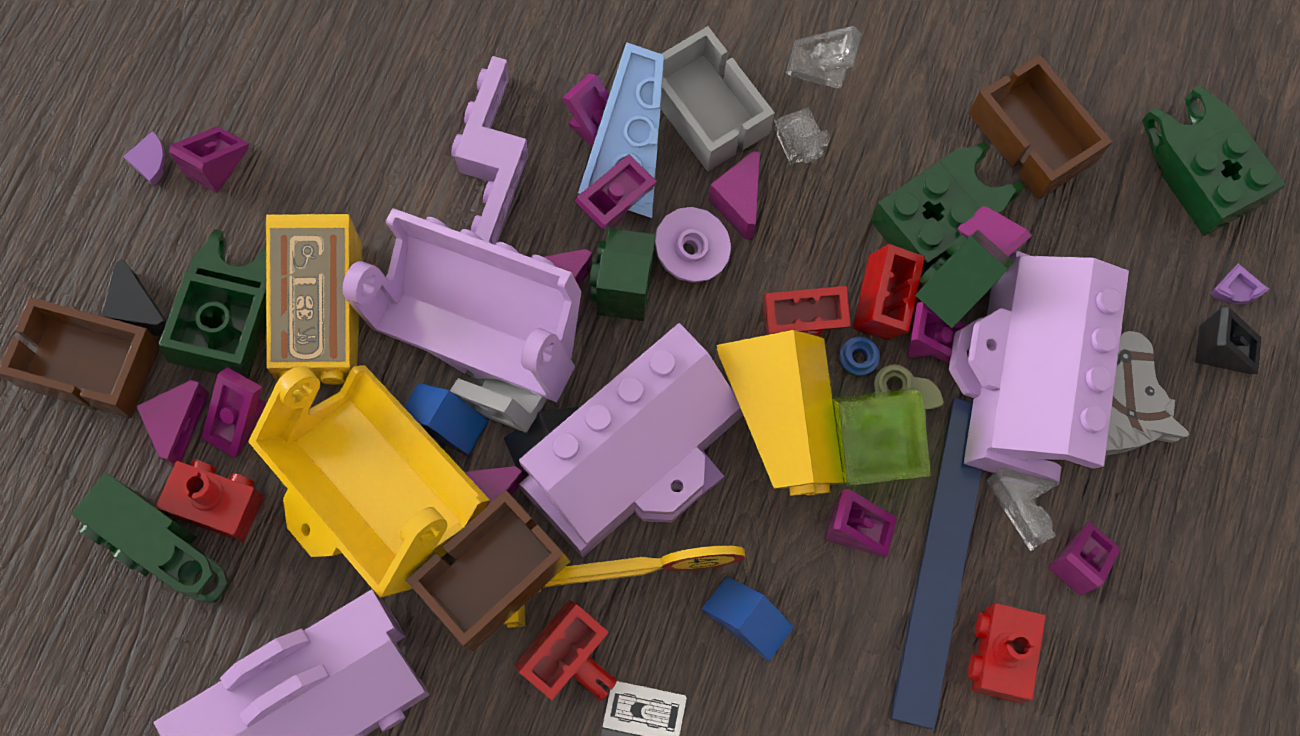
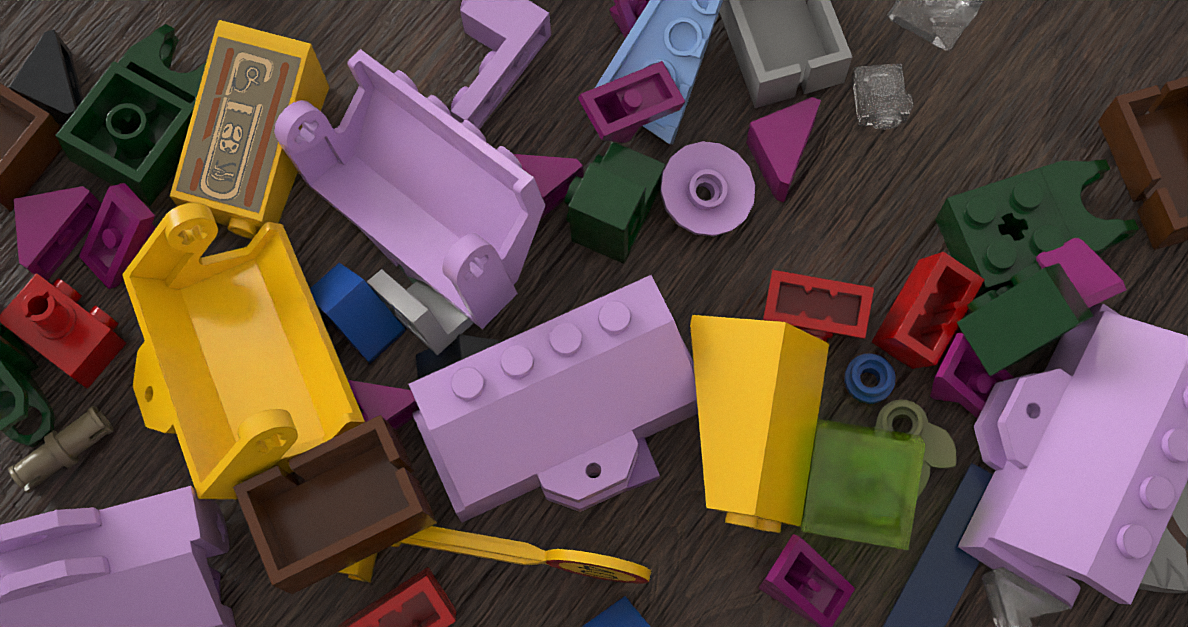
camera: 25 degrees right, 0 degrees up
(241, 596) = (60, 449): none -> dark tan pin

